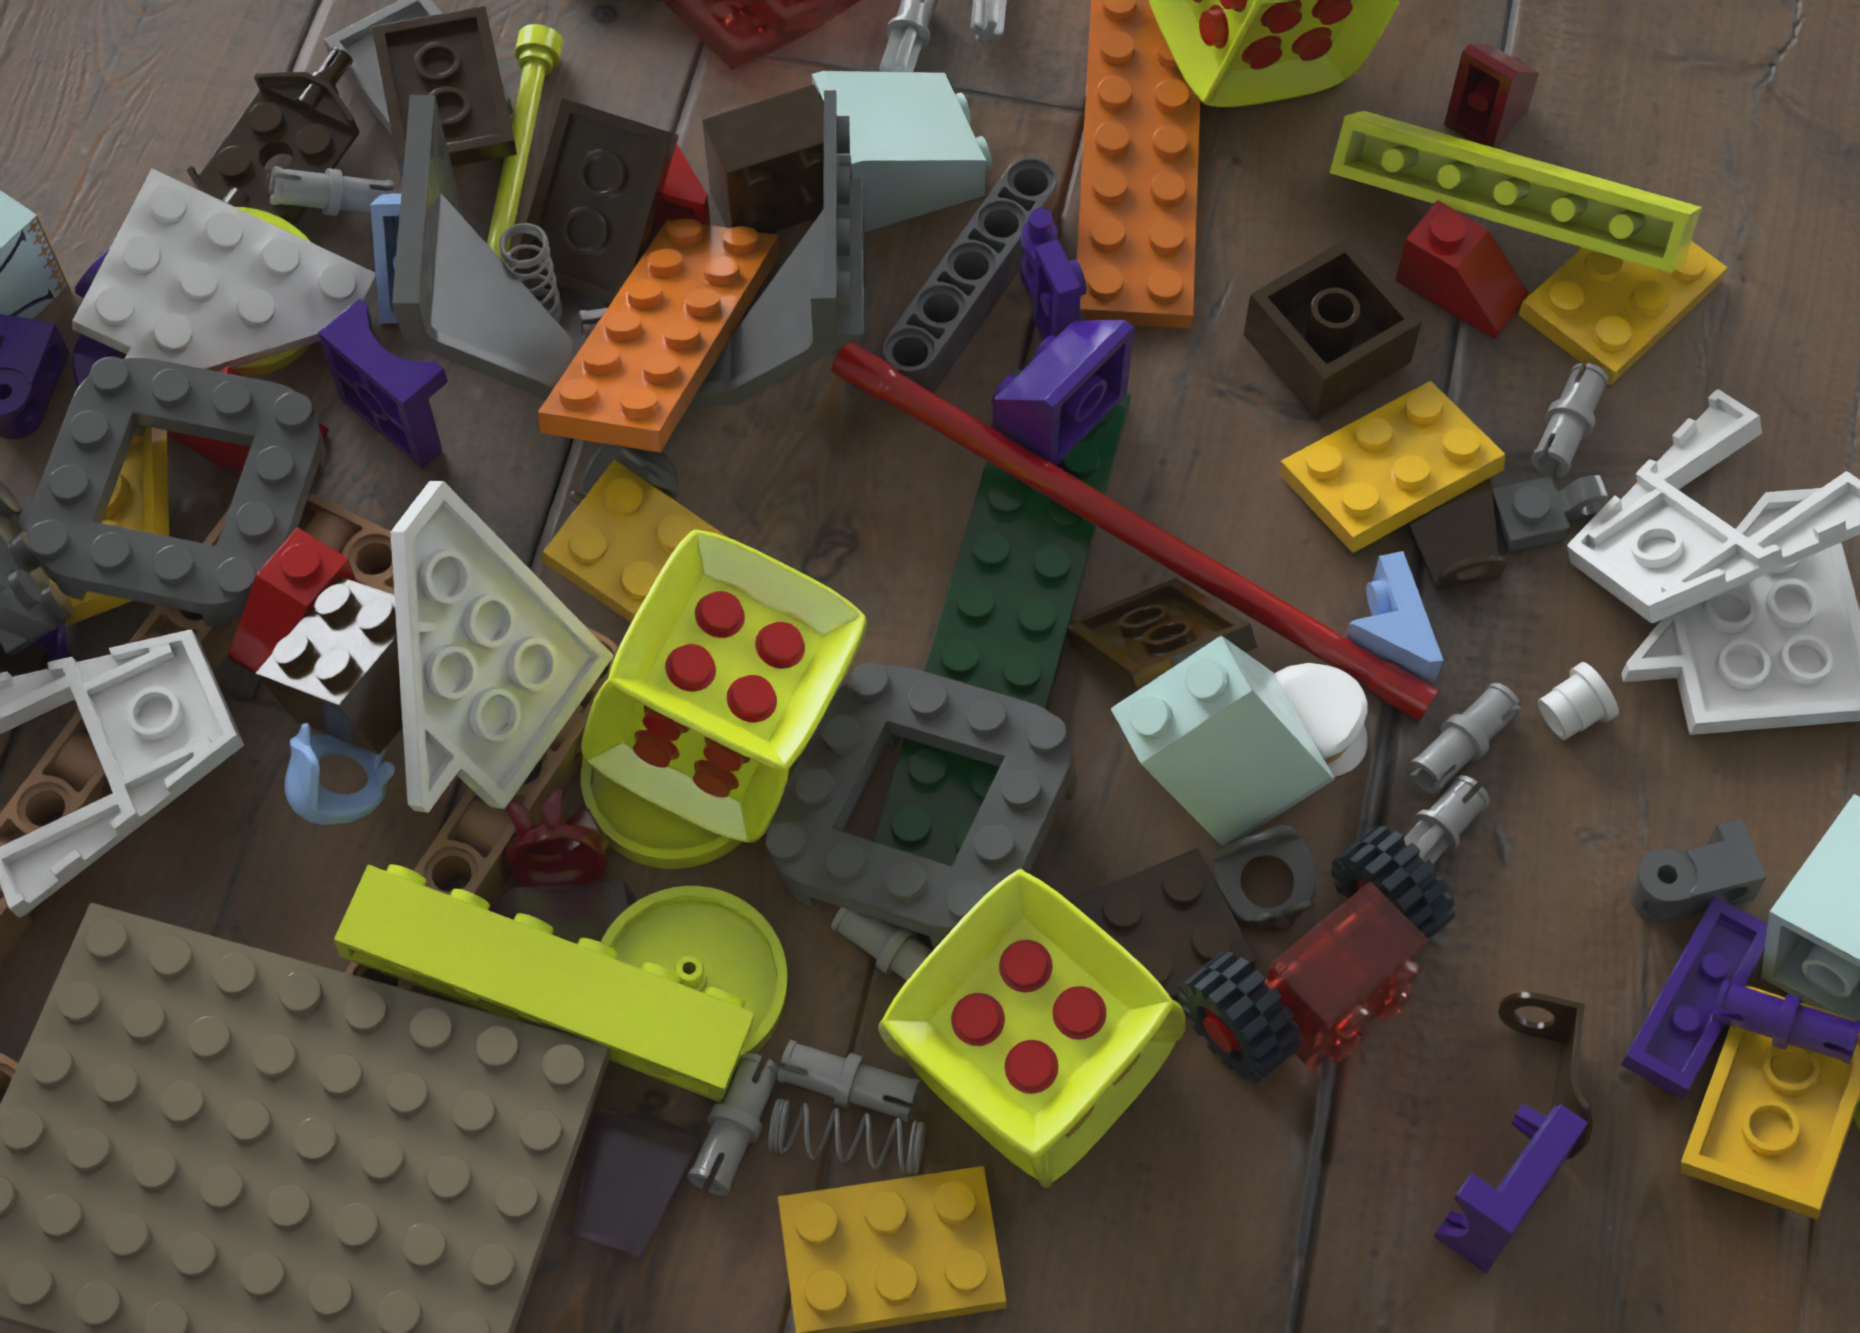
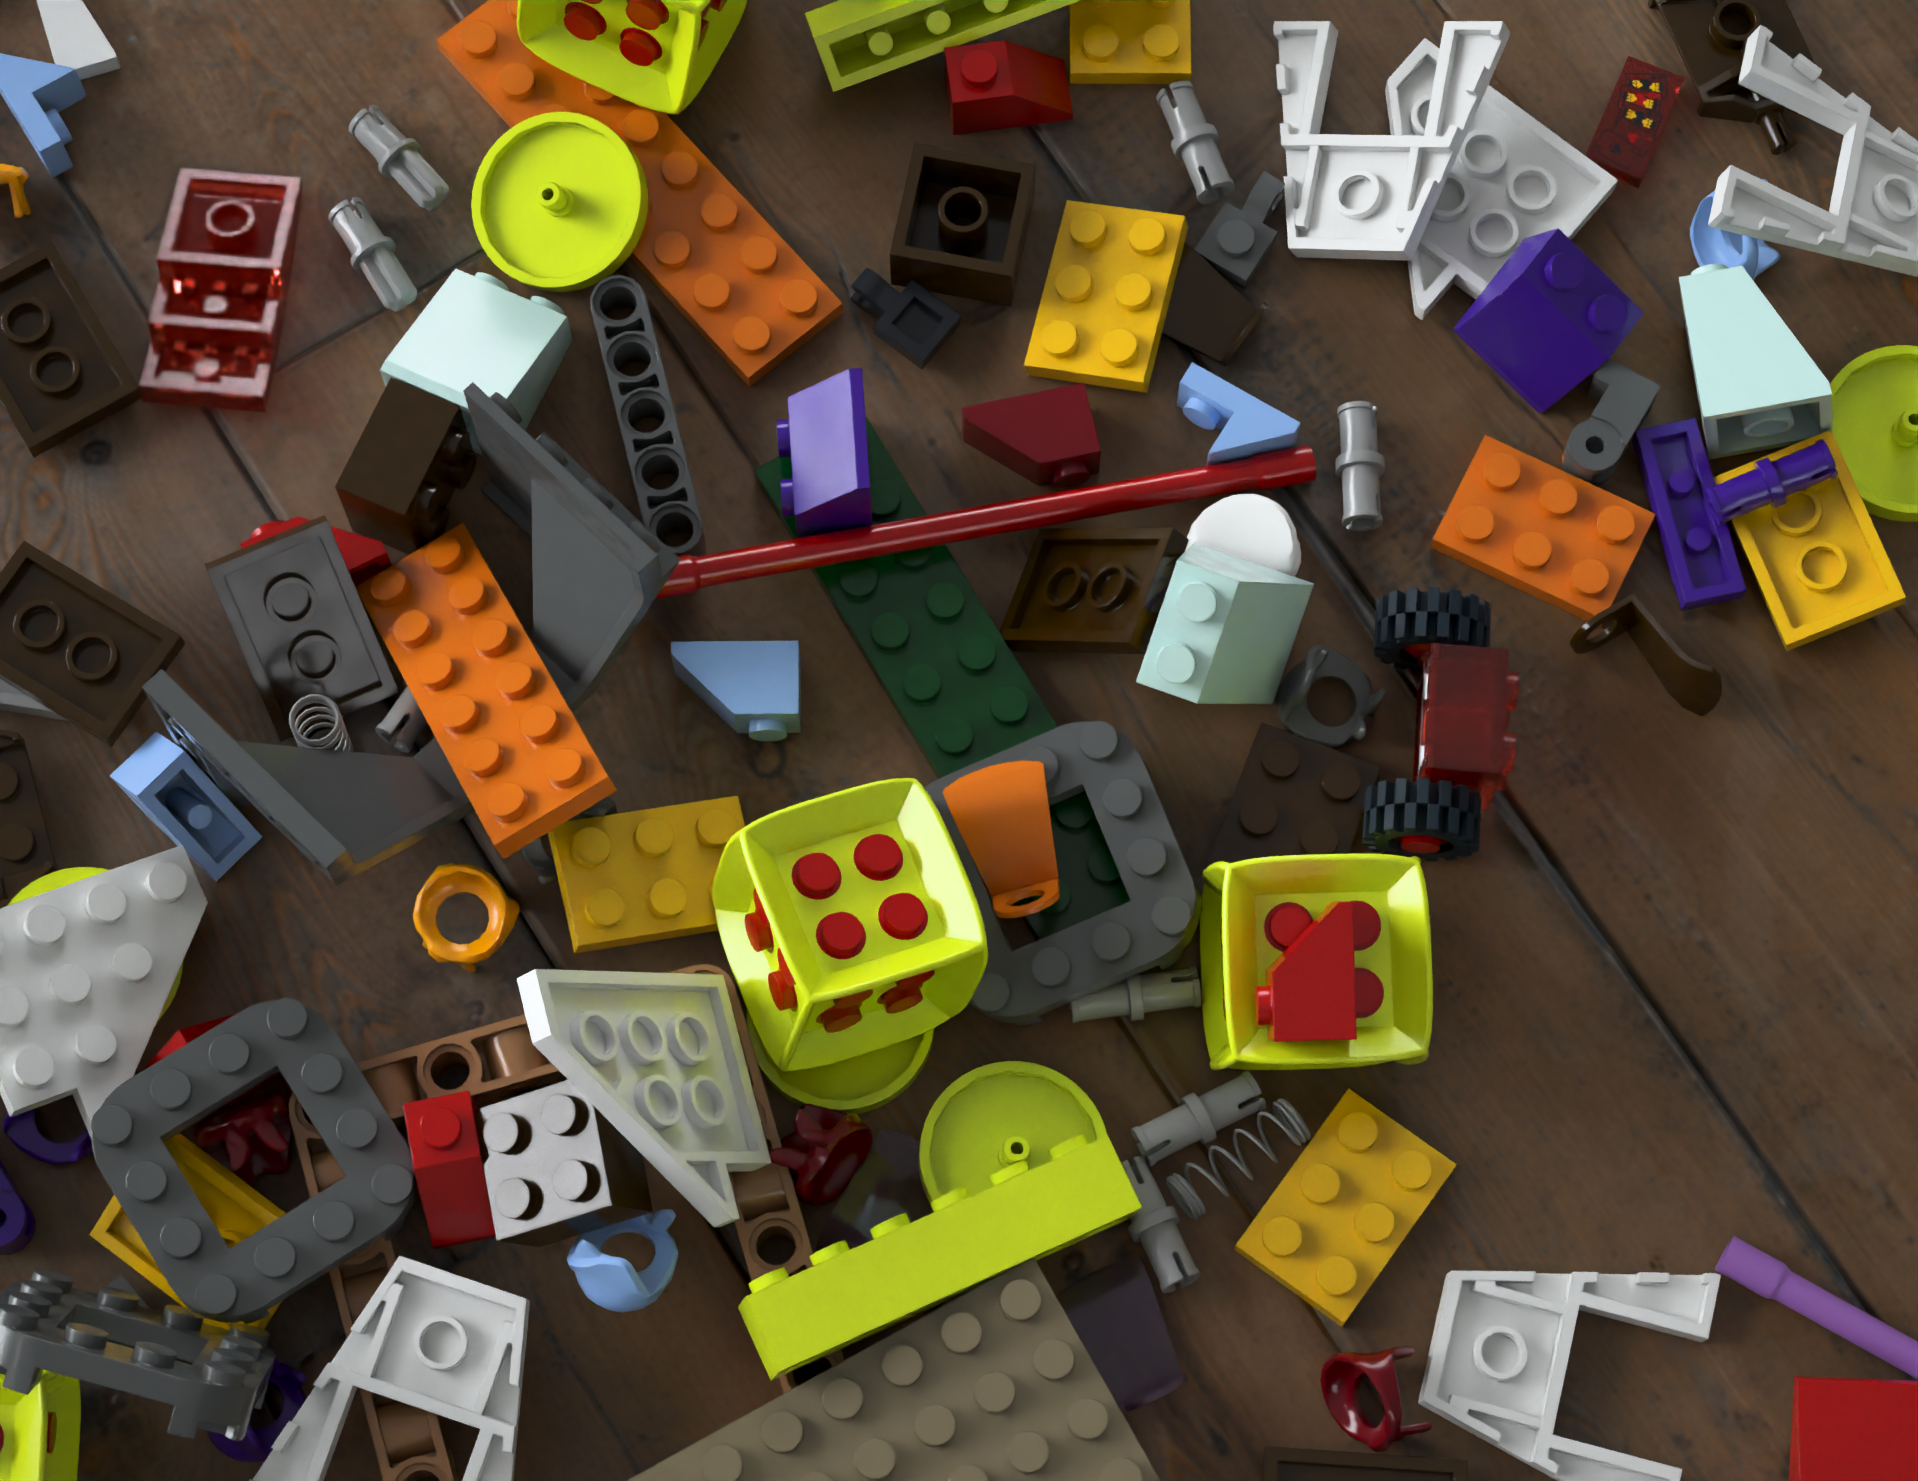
camera: 45 degrees left, 10 degrees up
(202, 487) = (250, 1137): none -> dark red piece
(326, 191) = (63, 812): light grey pin -> none
(381, 386) = (306, 934): dark purple piece -> none
(507, 440) = (458, 879): none -> light orange piece
(538, 53) = (90, 539): neon yellow piece -> none
(858, 499) = (746, 683): none -> light blue slope
(917, 744) = (1008, 833): none -> orange piece
(993, 1011) = (1313, 982): none -> red slope
(1049, 277) = (734, 380): dark purple plate -> none
(1065, 94) = (559, 202): none -> neon yellow piece
(1229, 365) = (909, 321): none -> black plate
(1242, 512) = (1038, 435): none -> dark red slope
(1439, 828) = (1407, 548): light grey axle -> none
(1495, 1214) = (1712, 766): dark purple piece -> none
(1566, 907) = (1542, 530): none -> orange plate
(1578, 702) = (1411, 366): white piece -> none
(1720, 753) = (1547, 319): none -> dark purple slope

